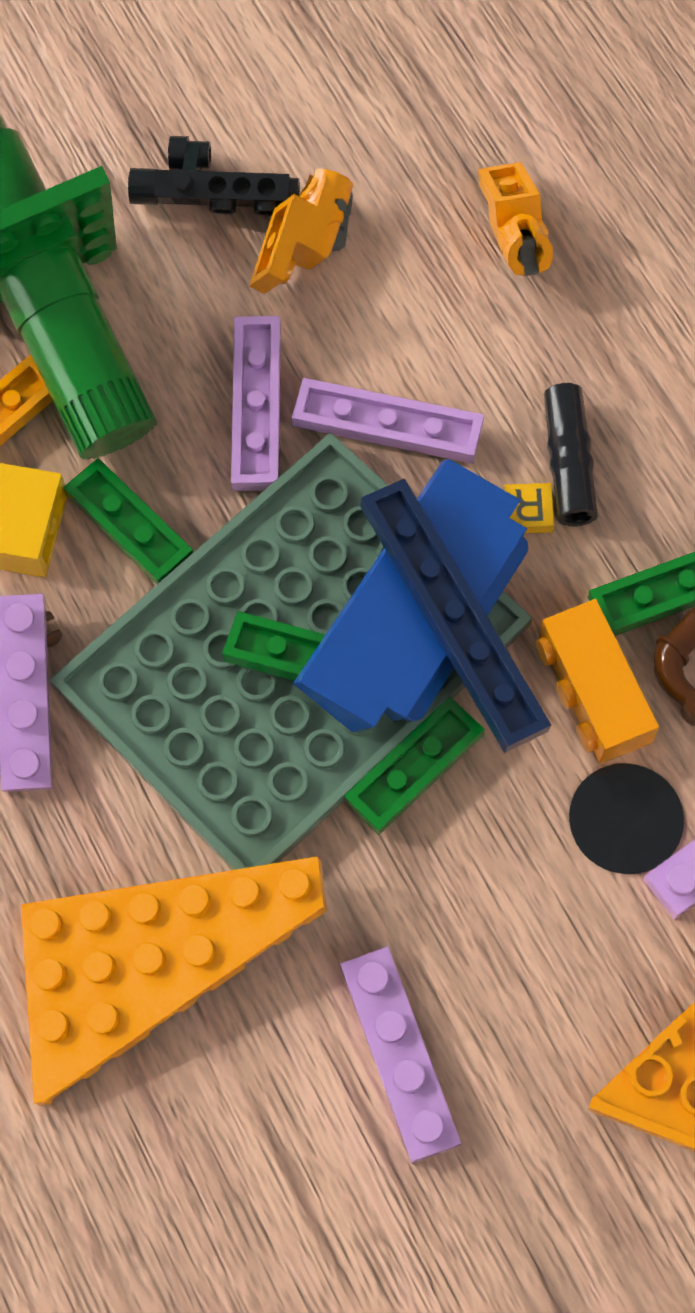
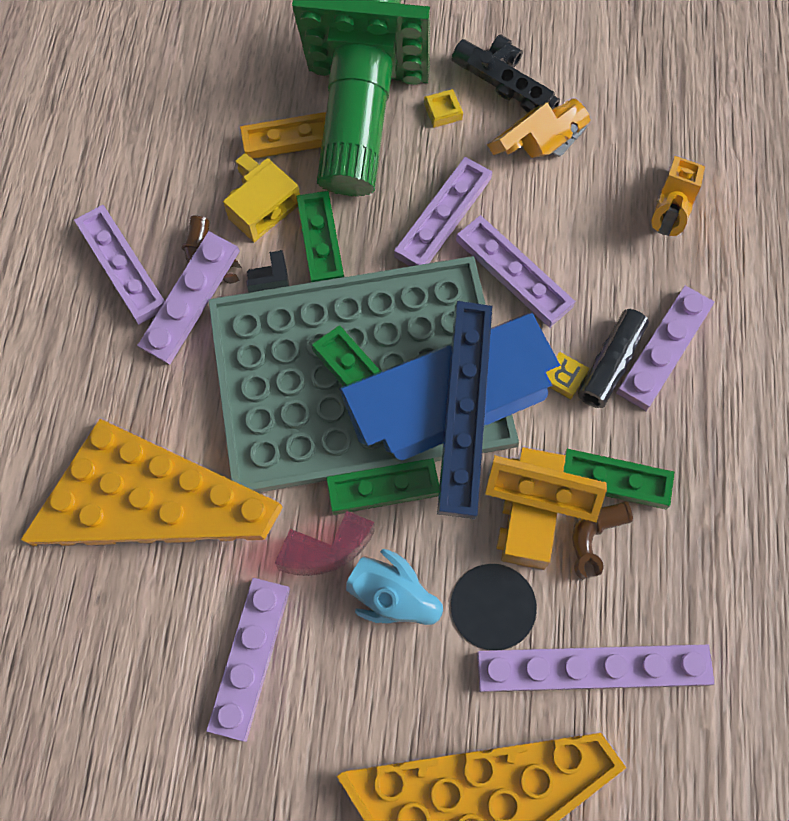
camera: 30 degrees right, 0 degrees up
(101, 607) = (270, 276): none -> black panel
(160, 270) = (443, 108): none -> yellow tile
(390, 895) = (310, 556): none -> clear pink brick
(509, 873) = (392, 592): none -> medium azure animal
(602, 648) = (546, 488): none -> light orange plate
(618, 407) = (665, 348): none -> lavender plate

